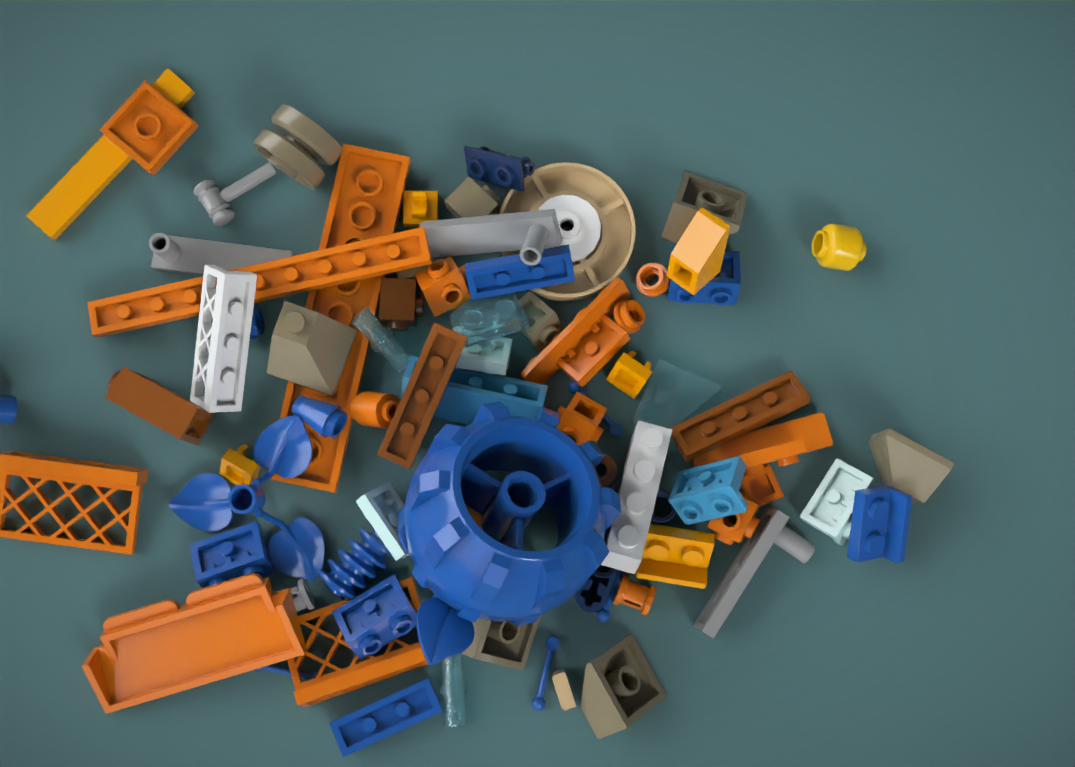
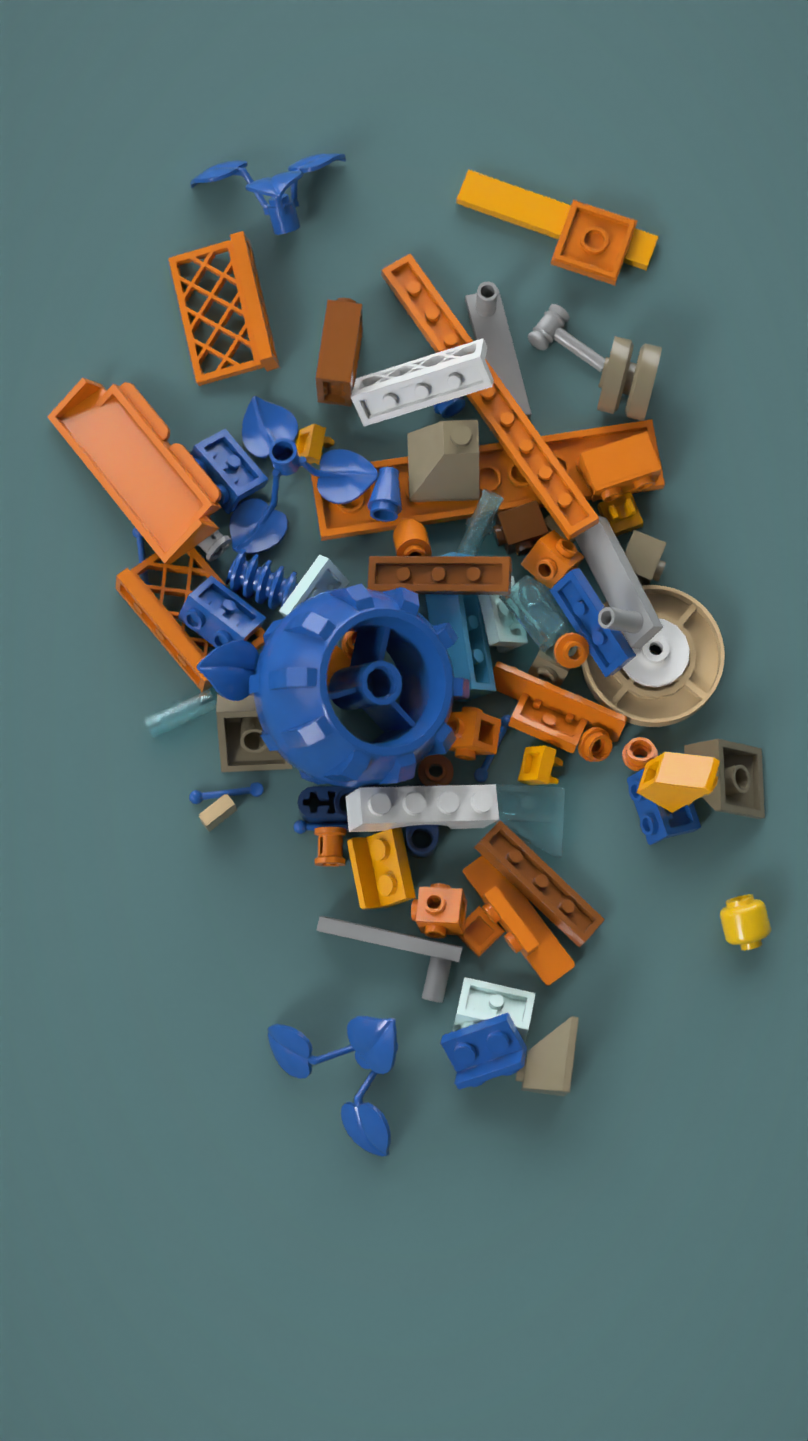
camera: 70 degrees right, 5 degrees down
(380, 188) = (620, 467): none -> orange hinge
(386, 716) = (134, 662): blue plate -> none
(497, 167) = (687, 568): dark blue hinge -> none
(531, 304) = (563, 646): none -> orange plate
(619, 688) = (239, 862): dark tan slope -> none
(709, 491) = (452, 872): dark azure bracket -> none
(847, 625) = (375, 1050): none -> blue plant

